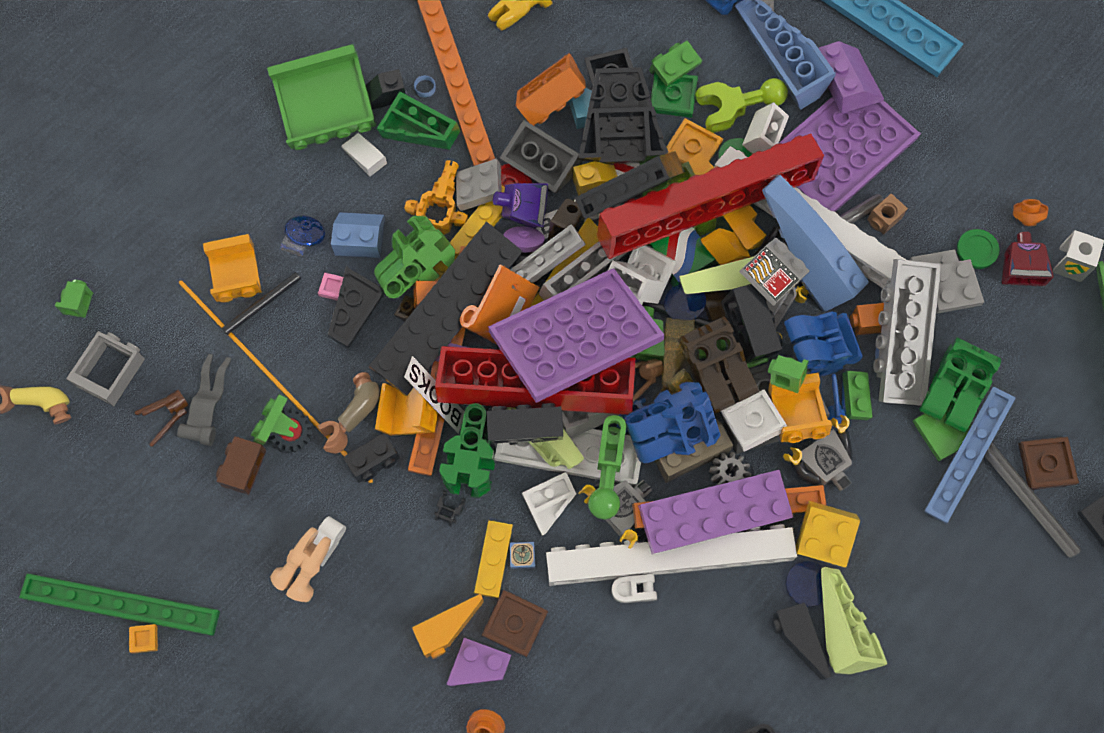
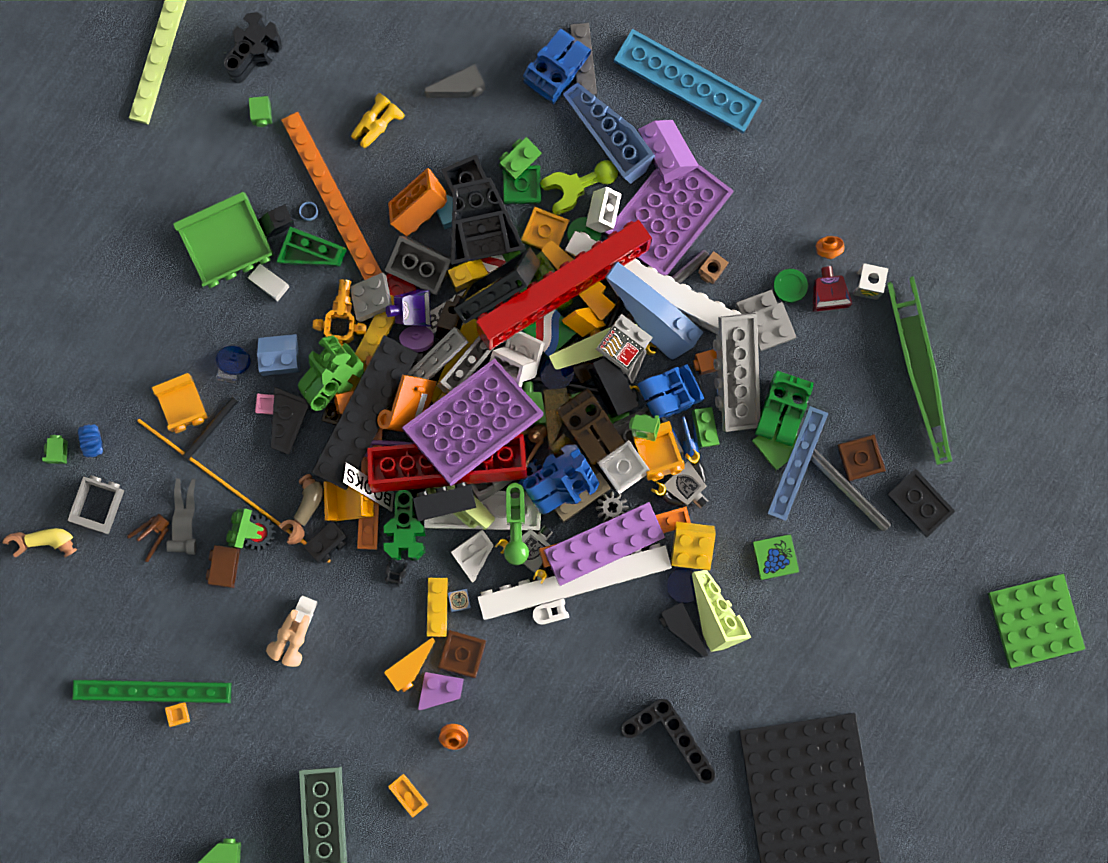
camera: 15 degrees left, 10 degrees up
(117, 292) = (90, 440): none -> blue gear
(929, 567) = (775, 557): none -> bright green tile

